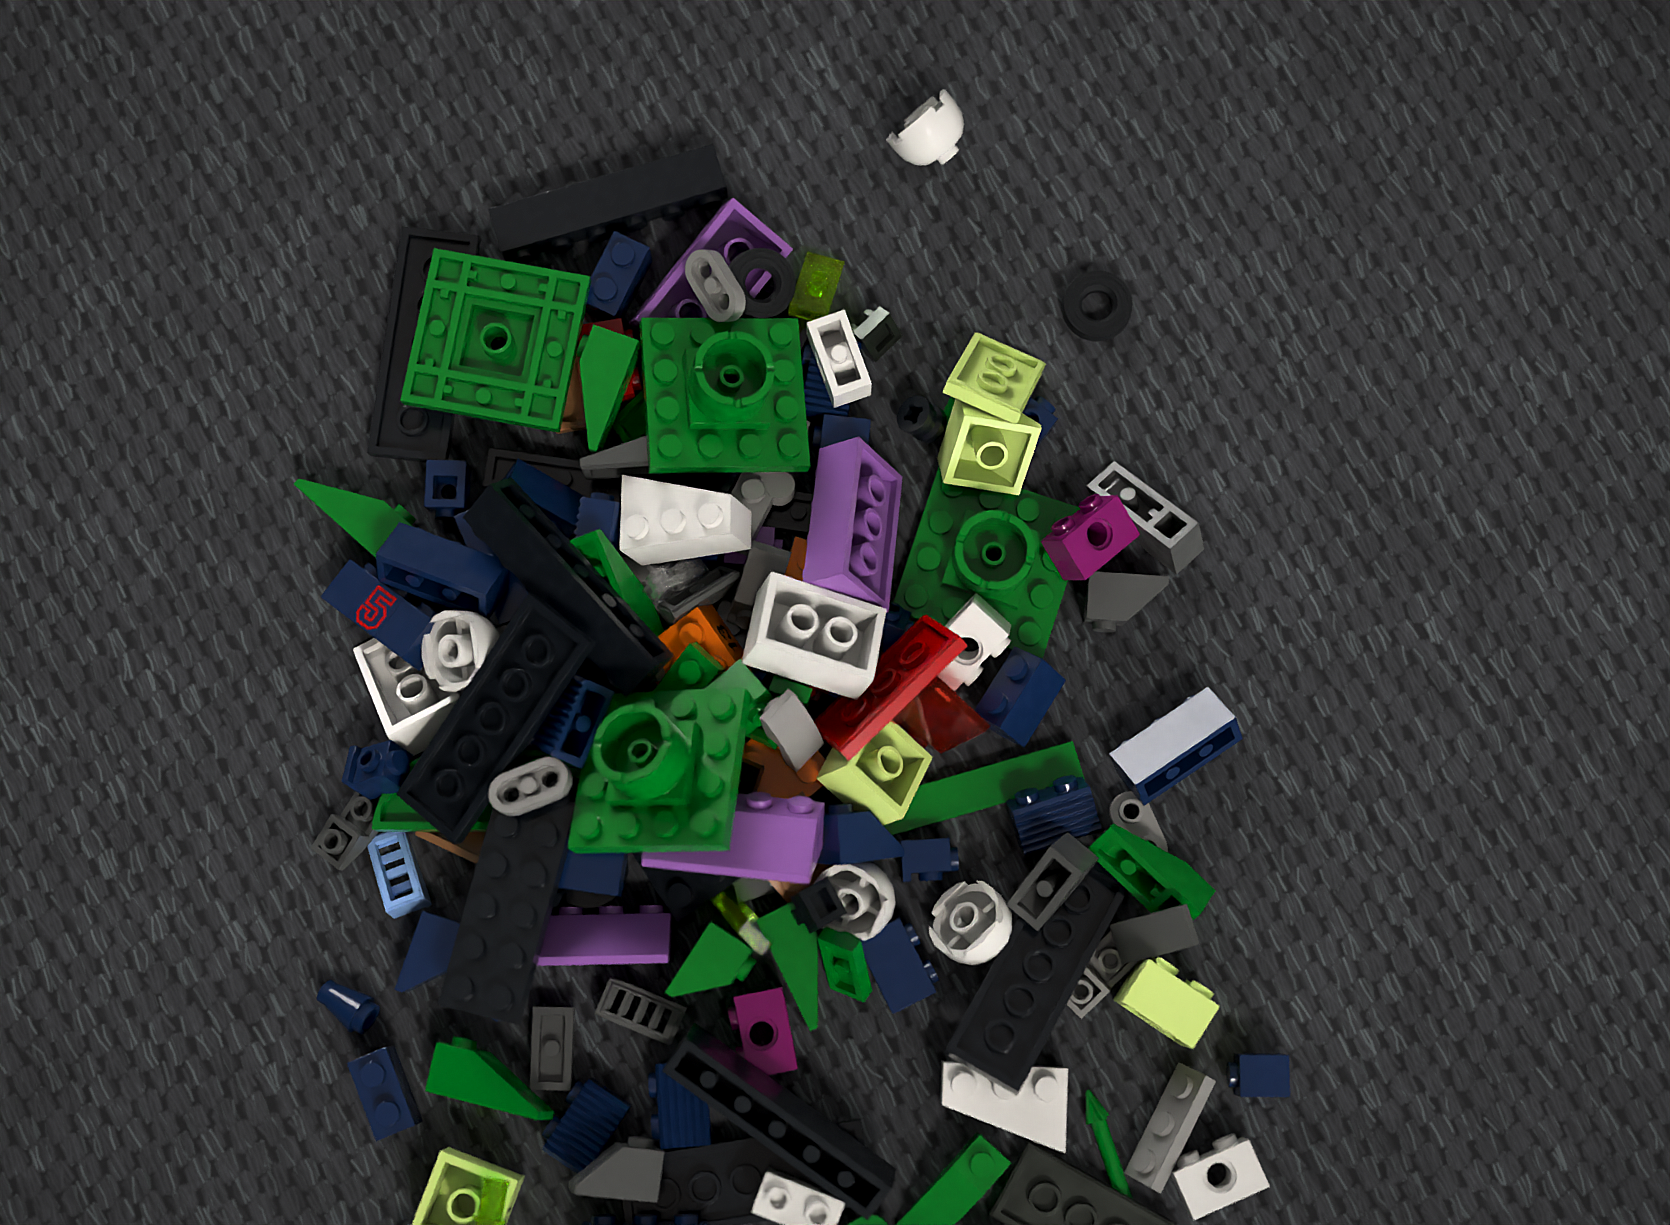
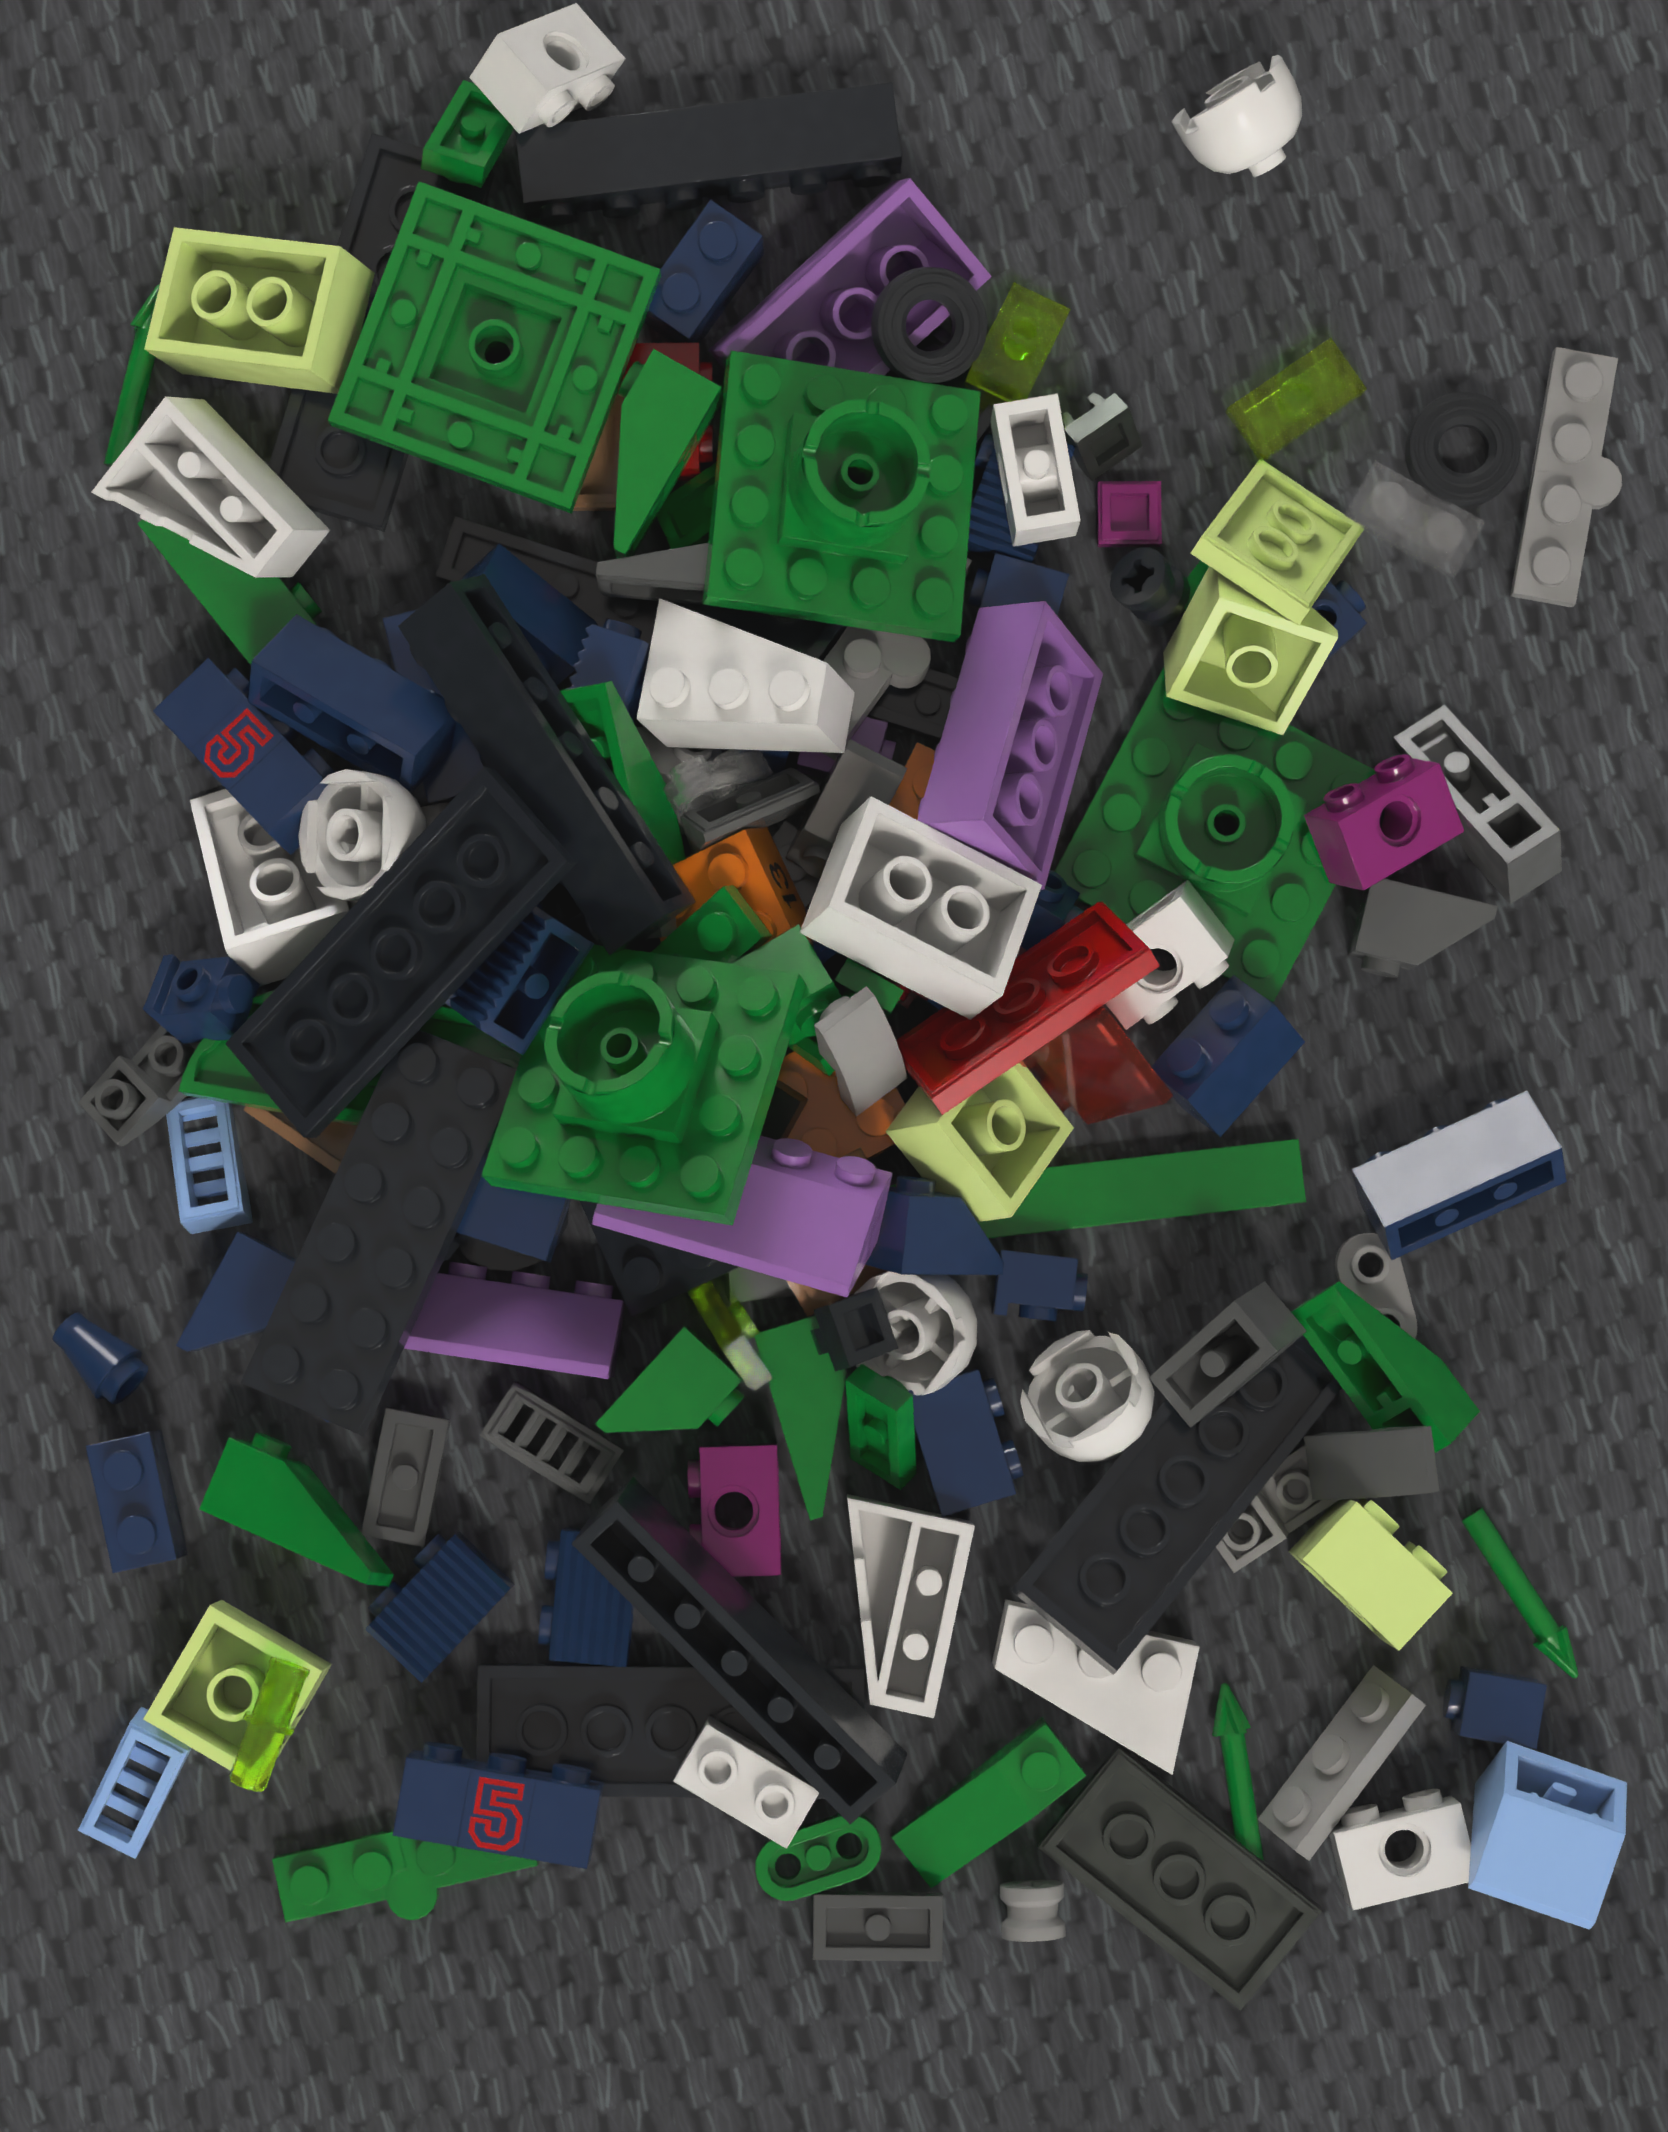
camera: 10 degrees right, 5 degrees up
(284, 365) = (134, 385): none -> green piece
(337, 455) = (212, 489): none -> white wedge
(348, 342) = (259, 309): none -> yellowish green brick
(445, 474) = (372, 548): dark blue brick -> none
(462, 216) = (467, 138): none -> green plate
(502, 169) = (548, 69): none -> white brick
(532, 786) = (440, 1068): light grey plate -> none
(623, 1172) = (485, 1686): dark grey slope -> none
(715, 289) = (857, 322): light grey plate -> none
(880, 1070) = (908, 1598): none -> white wedge
(901, 378) = (1129, 514): none -> magenta tile
(990, 293) = (1296, 400): none -> clear neon green plate
(1049, 813) = (1240, 1247): dark blue brick -> none
(1075, 353) = (1414, 520): none -> clear plate
(1163, 312) = (1566, 477): none -> light grey hinge
(1286, 1026) = (1552, 1639): none -> green piece
(1306, 1150) = (1546, 1834): none -> light blue slope

